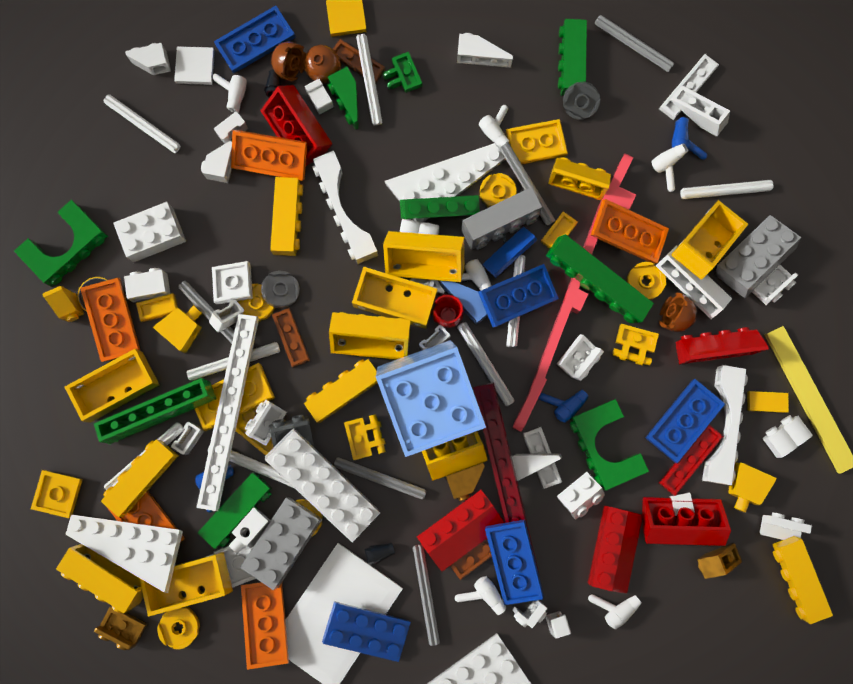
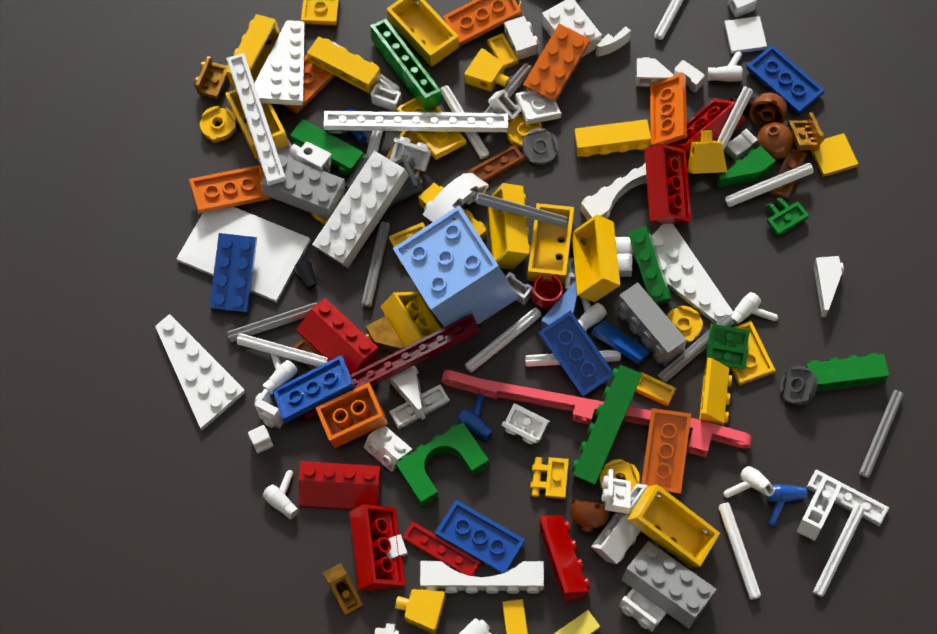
camera: 85 degrees right, 15 degrees down
(175, 195) = (611, 44): none -> white slope
(190, 252) = (557, 62): none -> orange plate
(193, 586) = (256, 119): none -> white tile
(274, 480) = (356, 171): none -> dark grey tile
(305, 100) = (735, 116): none -> white axle
(321, 31) = (806, 133): none -> pearl gold bracket
(324, 378) = (459, 191): none -> white brick
(332, 128) = (706, 155): none -> yellow torso
(355, 172) = (667, 184): none -> red slope
(363, 319) = (522, 210): none -> light grey axle
(463, 590) = (281, 350): none -> white axle
(533, 154) = (728, 345): none -> green slope
(549, 527) = (351, 415): none -> orange brick
(671, 284) = (616, 493): none -> white bracket
(740, 104) = (839, 550): none -> white axle

